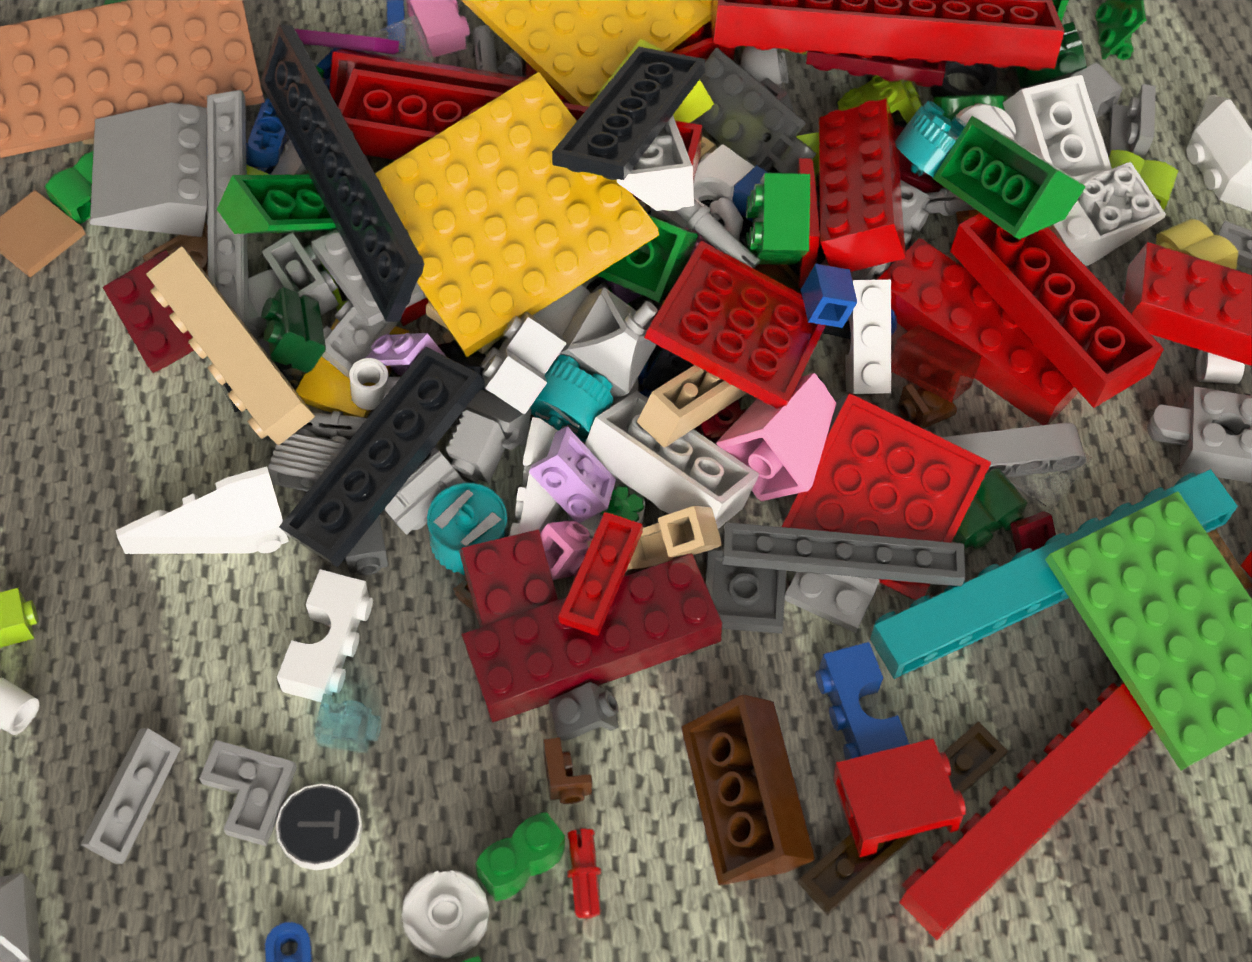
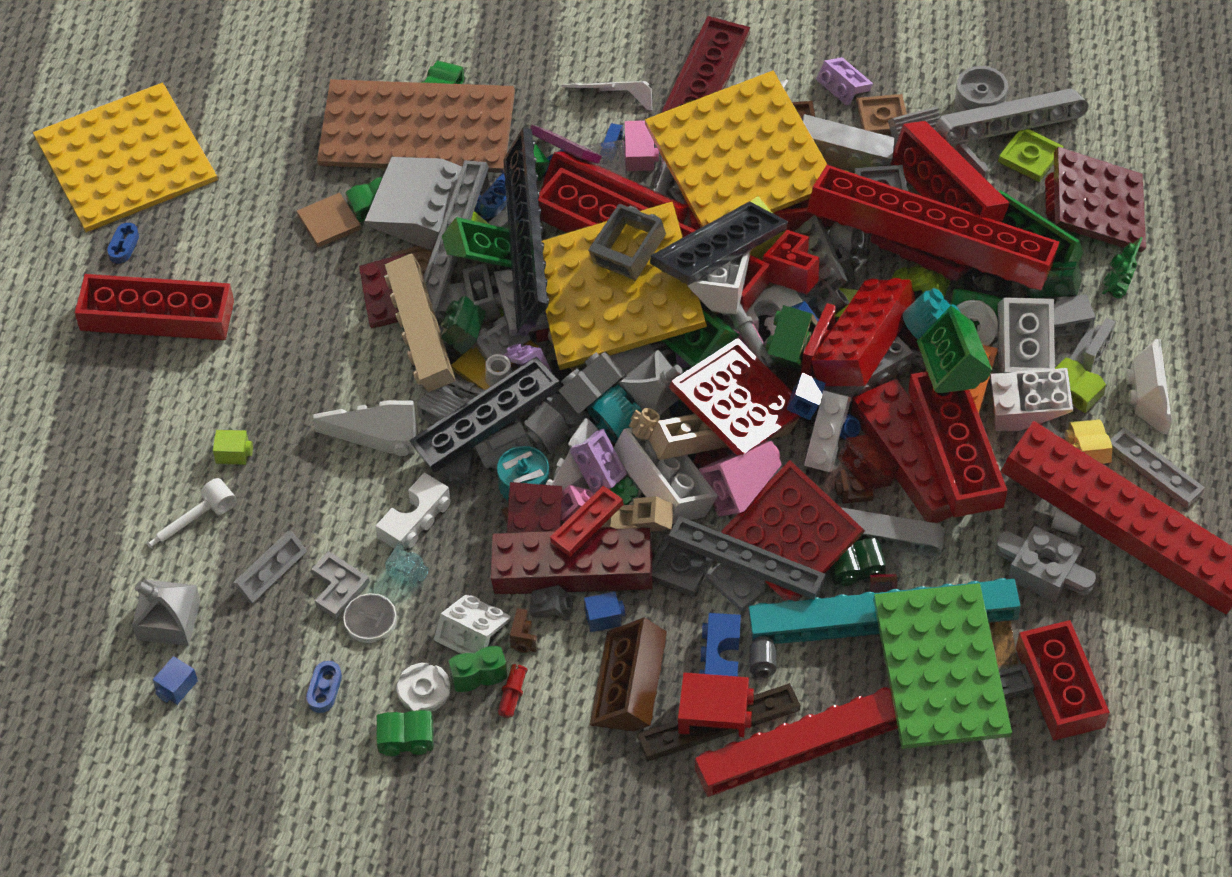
camera: 25 degrees right, 5 degrees down
(480, 789) = (469, 625): none -> white bracket
(501, 175) = (618, 262): none -> dark grey window
(624, 400) = (644, 423): none -> tan gear
(667, 700) = (603, 611): none -> blue brick
(727, 121) = (791, 263): none -> red brick
(921, 694) = (762, 657): none -> dark grey brick

